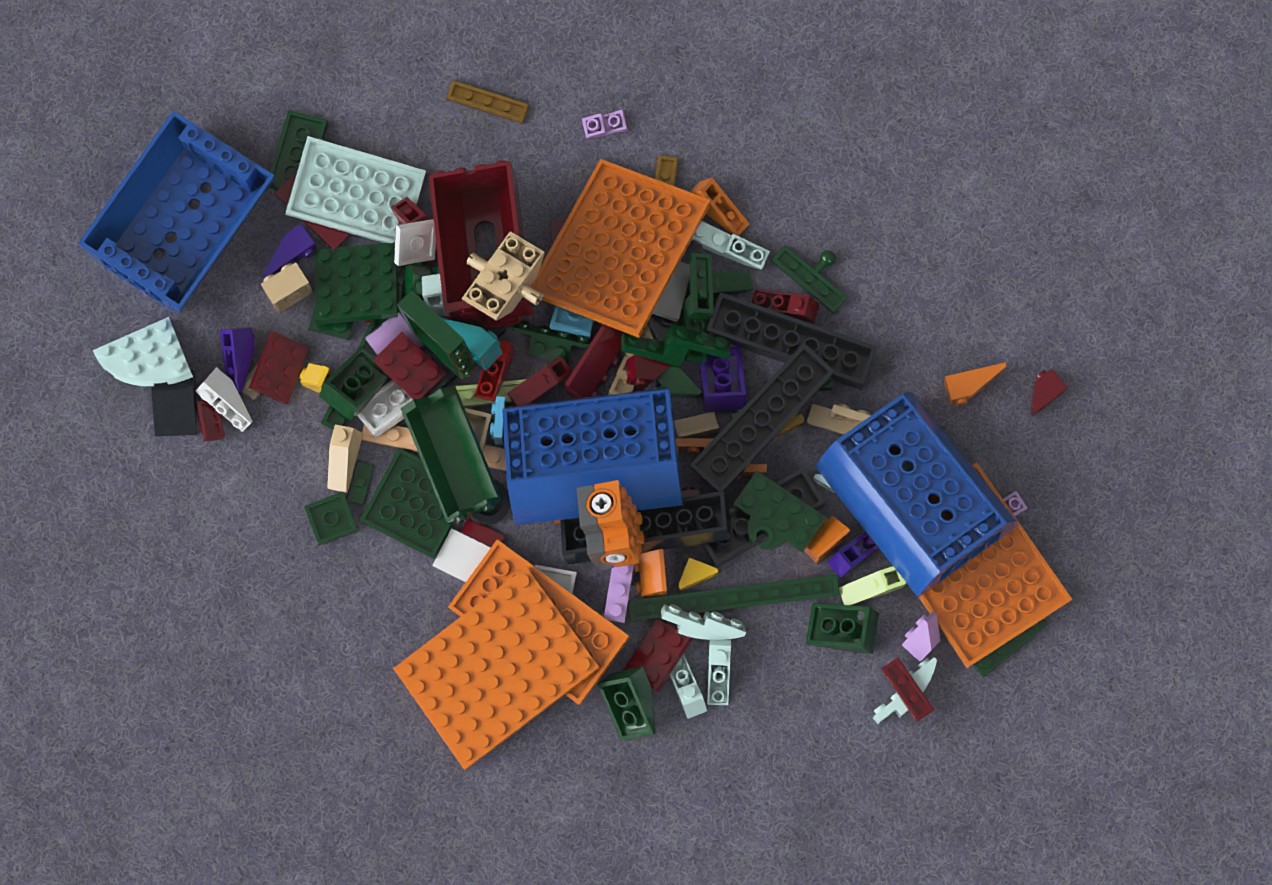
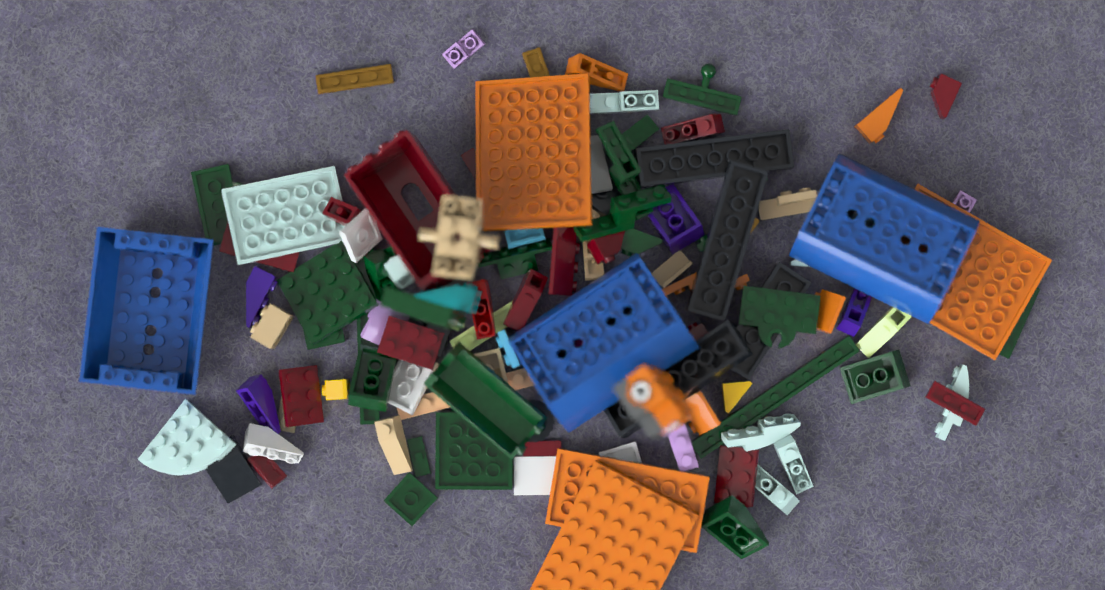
camera: 30 degrees left, 10 degrees up
(924, 637) = (947, 352): lavender slope -> none

